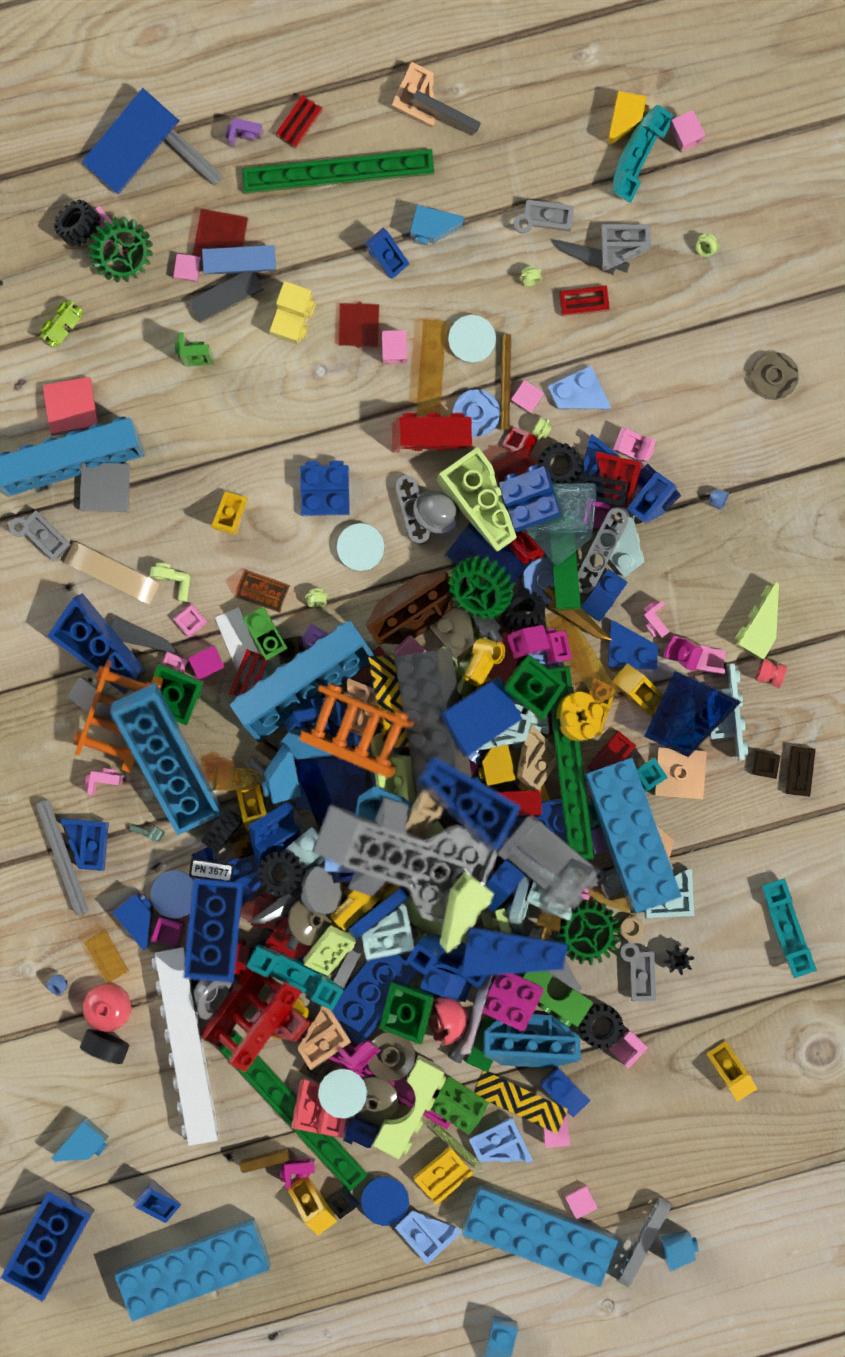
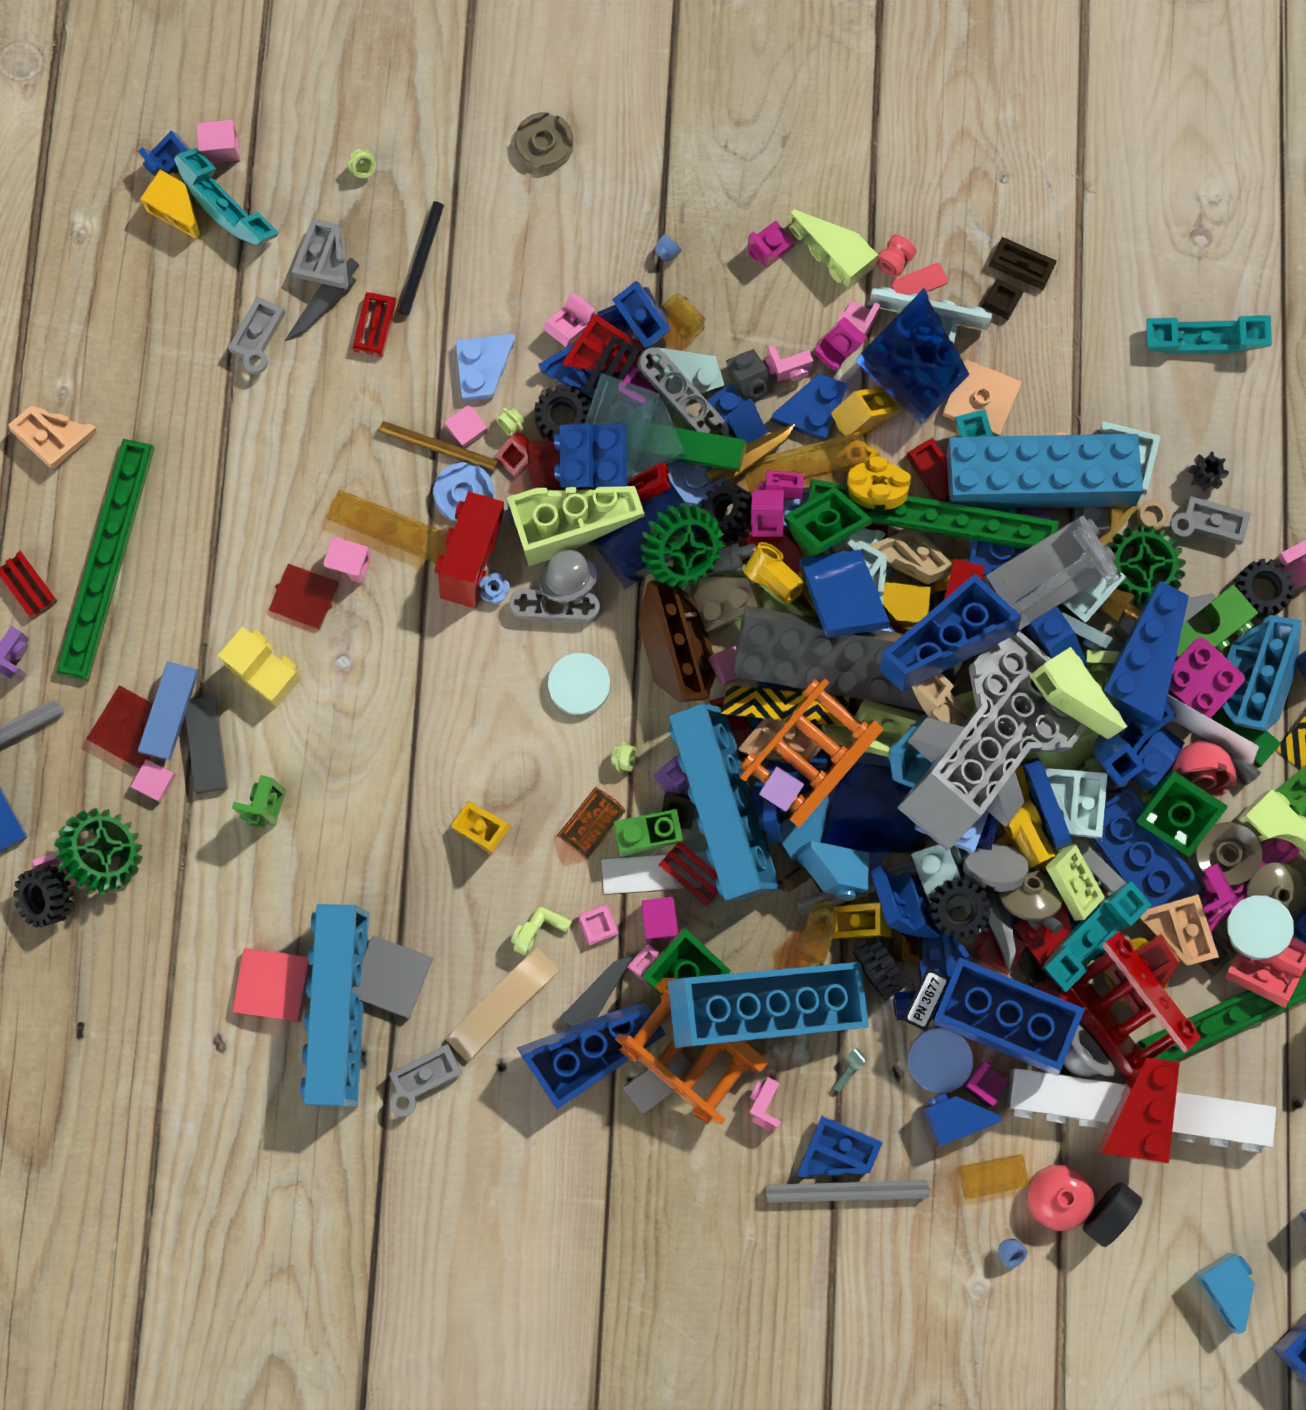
camera: 70 degrees left, 10 degrees down
(65, 315) = (165, 974): lime hinge -> none
(177, 1047) = (1145, 1114): none -> red wedge
(321, 718) = (781, 788): none -> lavender tile
(324, 489) = (491, 702): blue plate -> none
(386, 253) = (229, 531): blue slope -> none
(410, 454) = (494, 580): none -> light blue plate
(433, 225) = (215, 466): dark azure slope -> none
(444, 113) = (85, 406): dark grey tile -> none
(472, 339) = (371, 468): light aqua tile -> none
(530, 276) = (321, 374): yellowish green plate -> none
(638, 593) = (750, 375): none -> dark grey bracket
(648, 316) = (421, 258): none -> black bar
(662, 95) = (163, 154): none -> blue bracket
(667, 529) = (683, 316): none -> clear yellow brick
(749, 574) = (769, 244): none -> dark pink bracket
(759, 697) = (926, 278): none -> coral sticker

